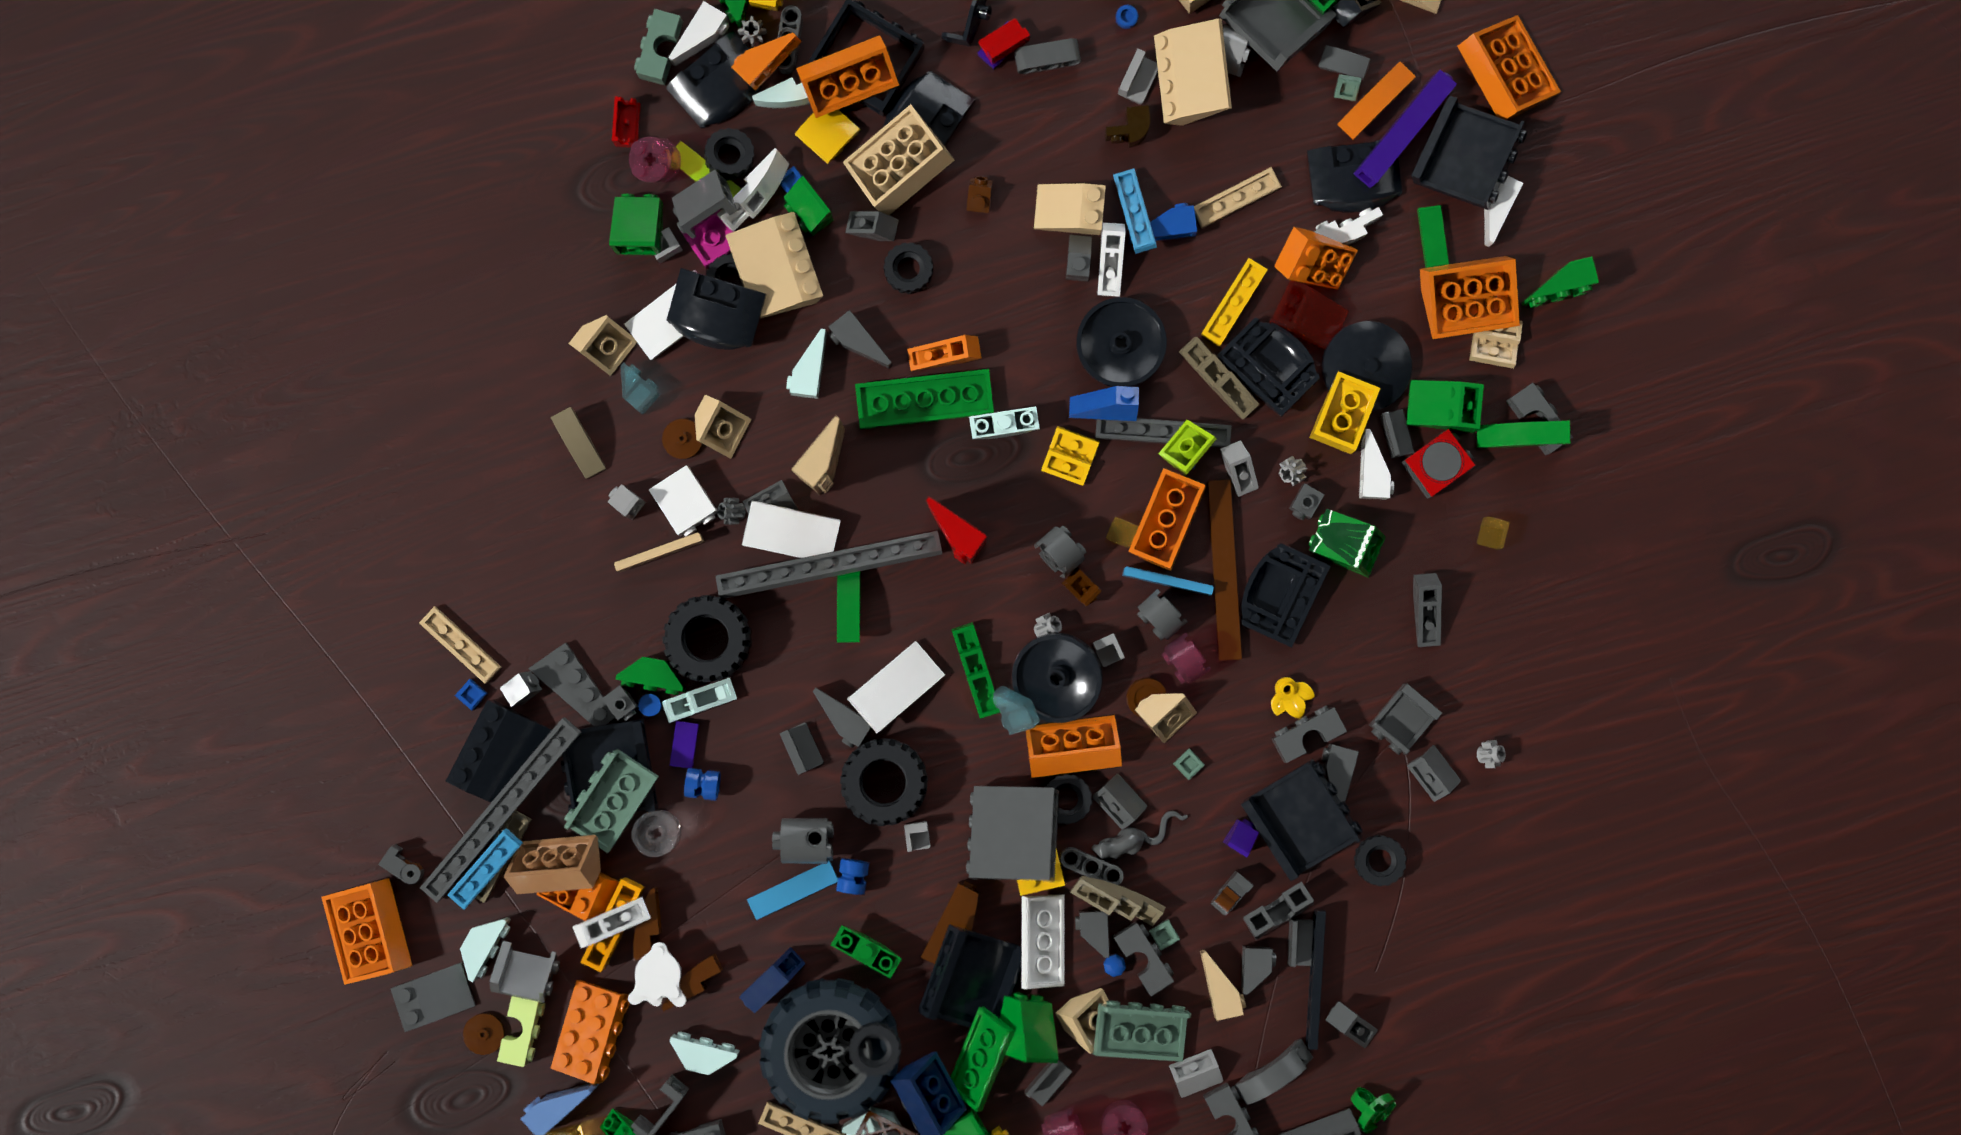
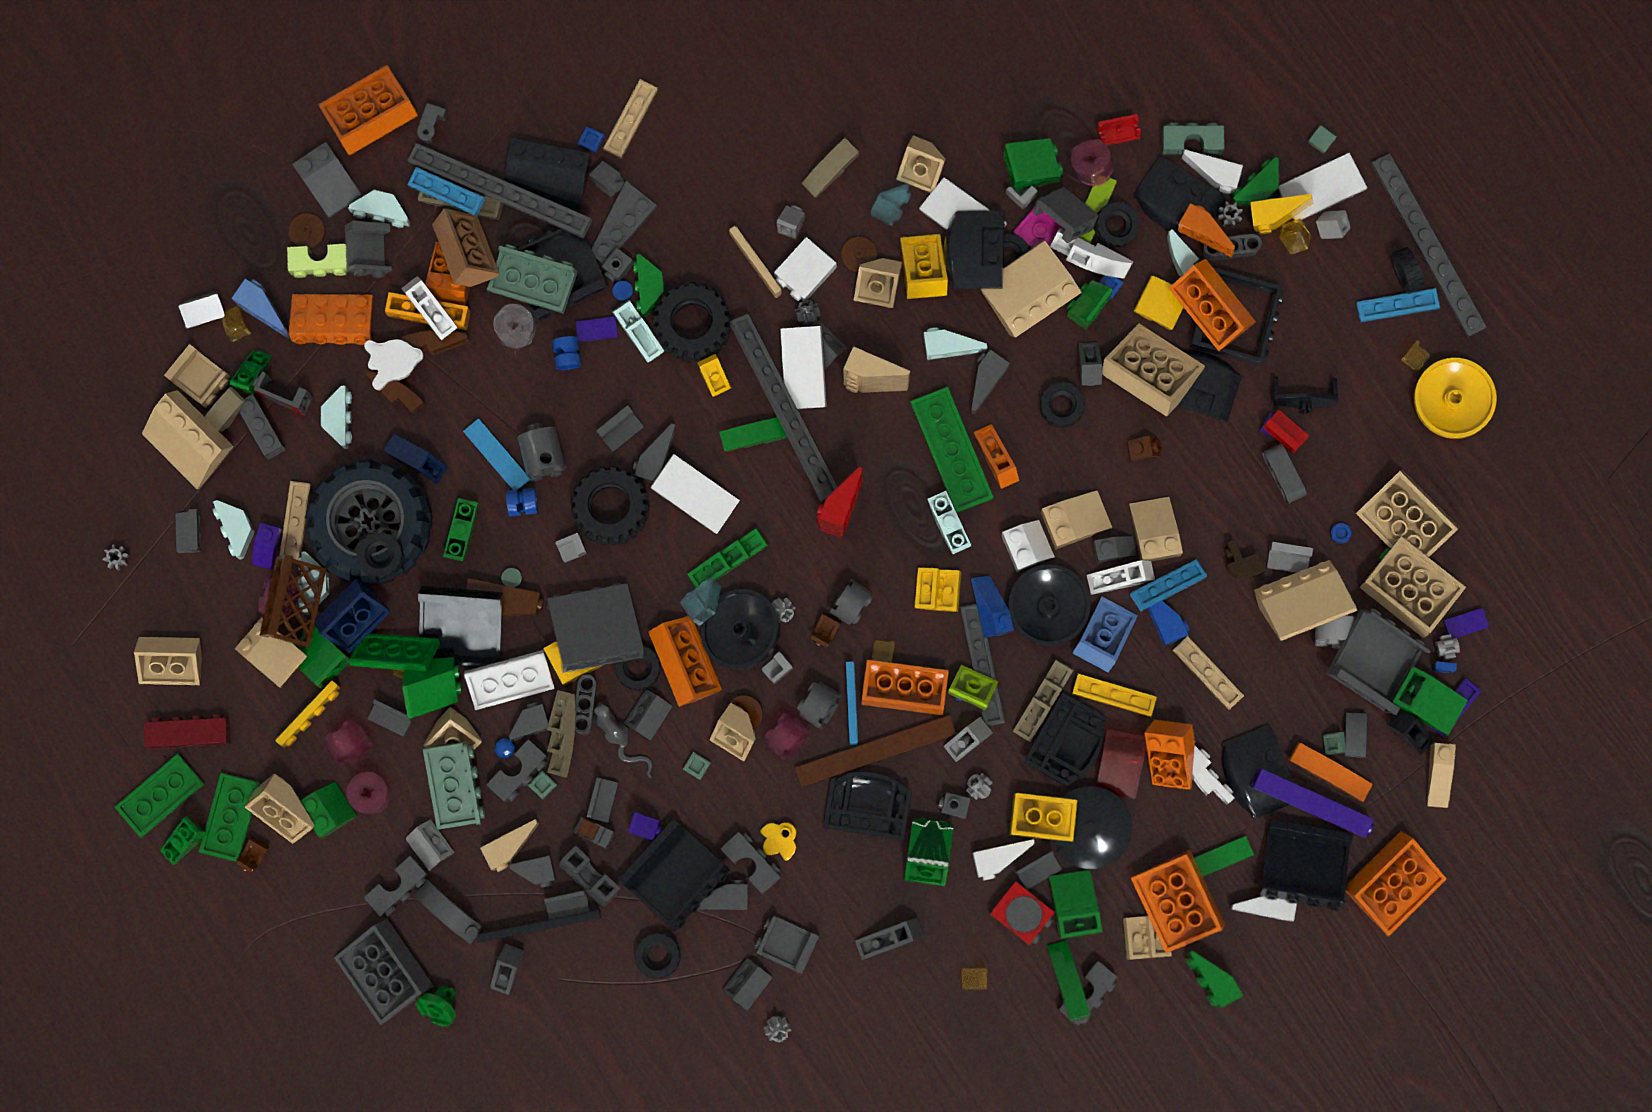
camera: 75 degrees right, 5 degrees down
(716, 372) = (923, 266): none -> yellow slope
(772, 631) = (713, 375): none -> yellow slope
(932, 909) = (511, 577): none -> sand green tile
(1035, 289) = (1075, 519): none -> tan slope
(1050, 348) = (1027, 545): none -> white slope
(1168, 292) = (1105, 634): none -> medium blue slope
(1198, 874) = (602, 800): none -> dark grey panel

